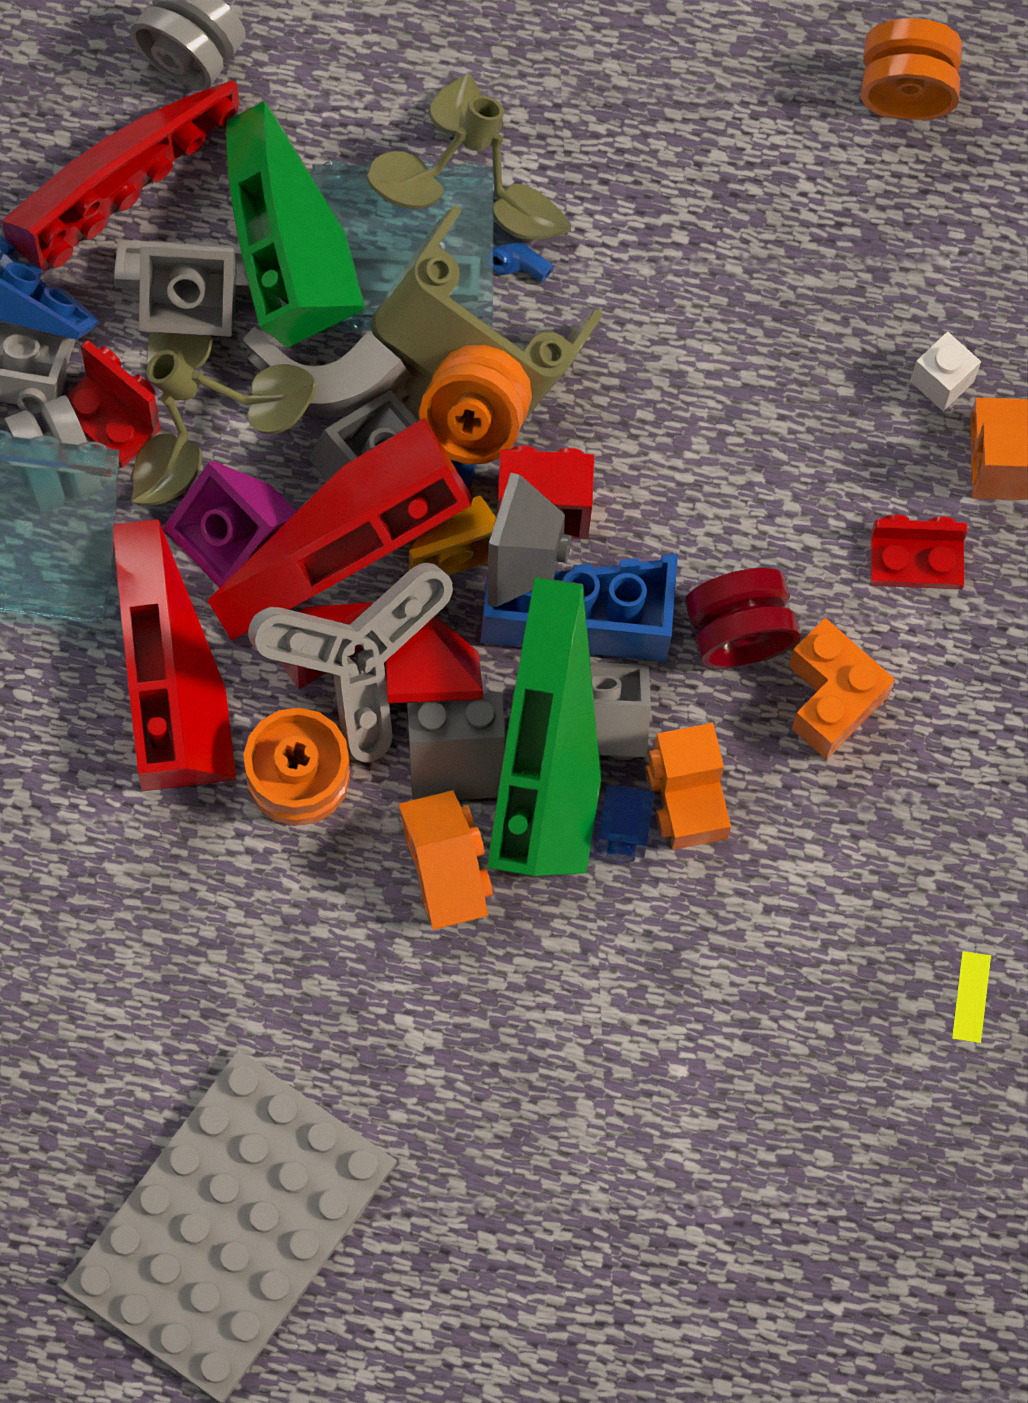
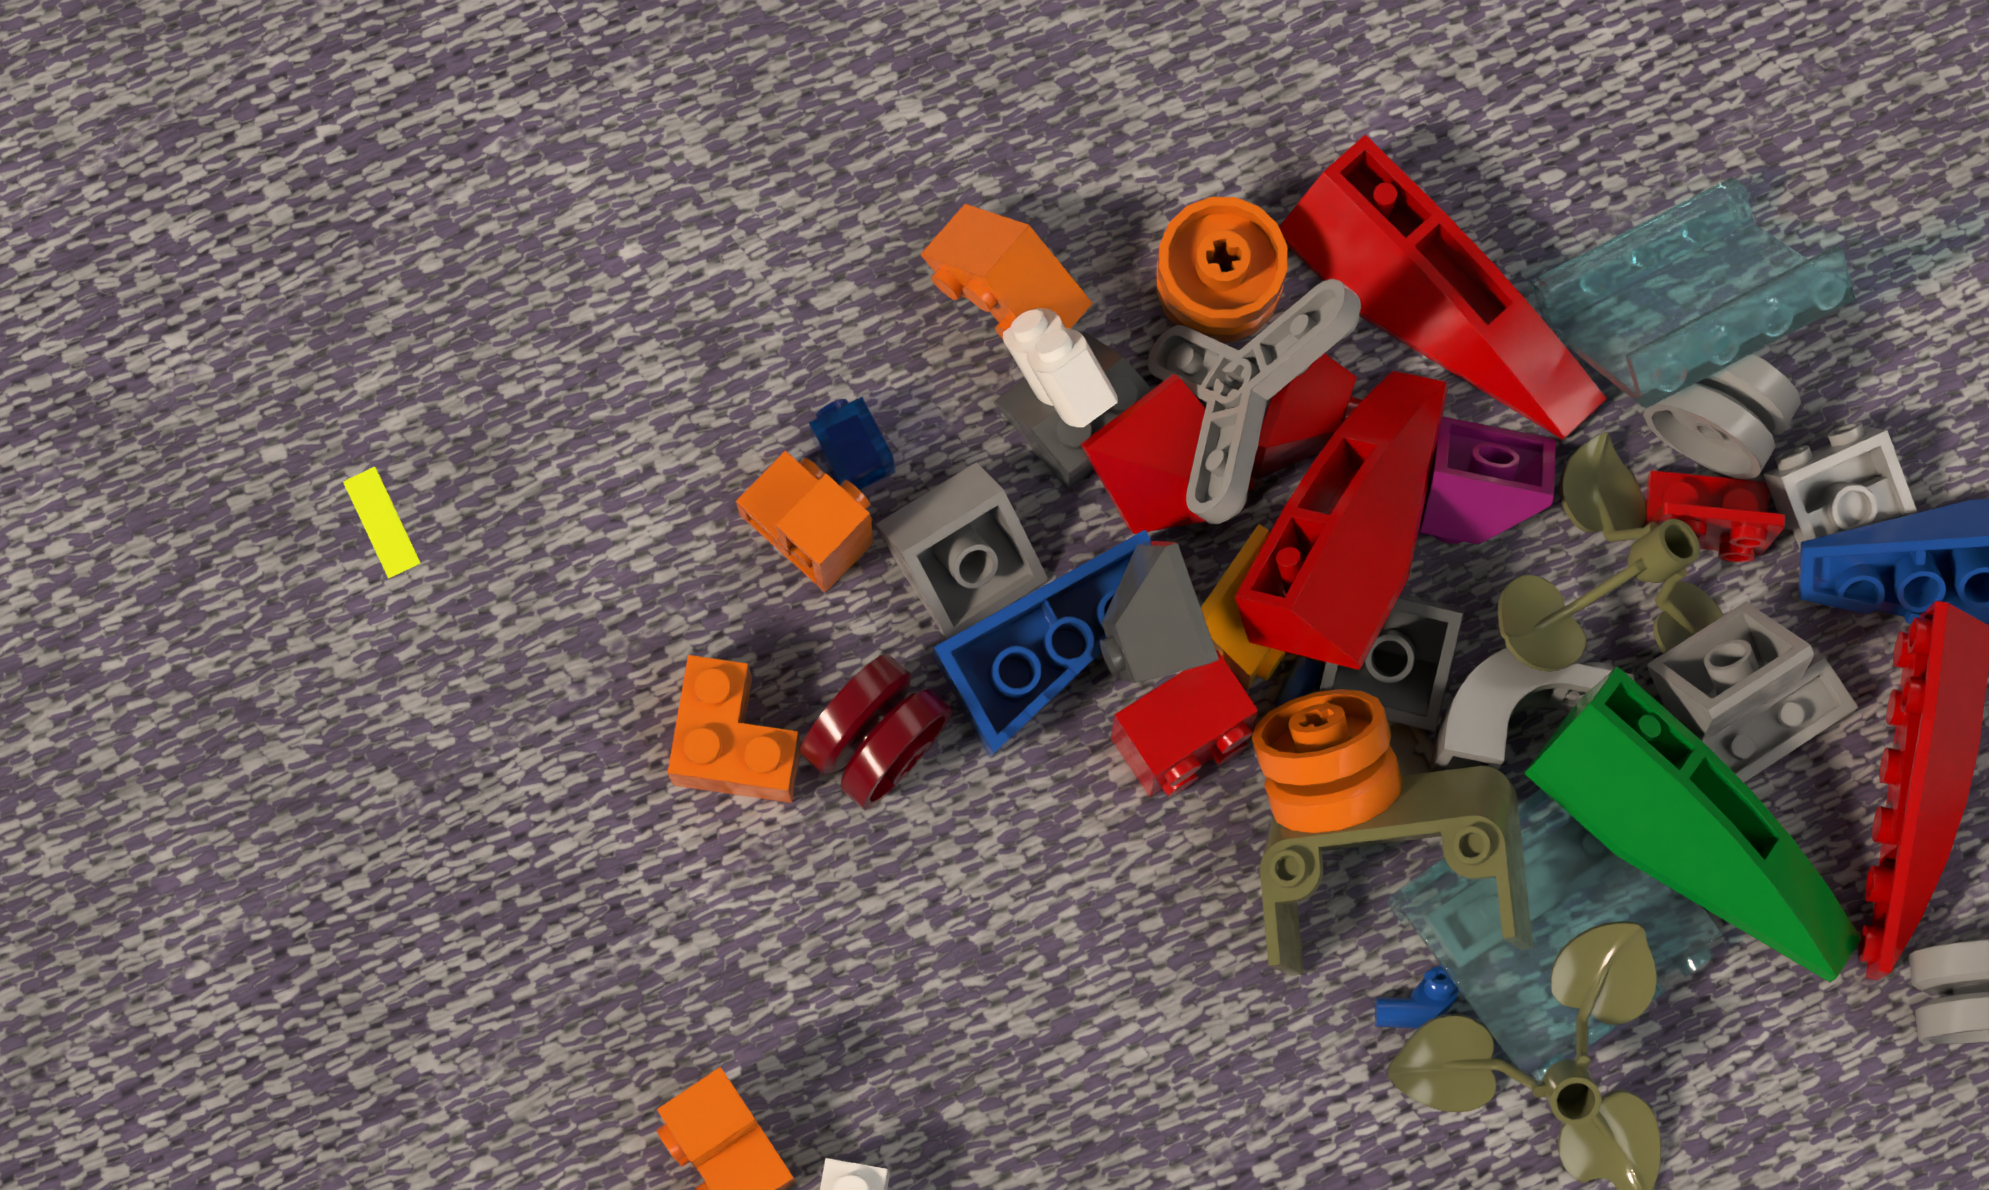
camera: 150 degrees right, 5 degrees up
(460, 752) = (1059, 366): none -> white brick
(551, 743) = (975, 437): green wedge -> none
(917, 552) = (743, 961): red bracket -> none

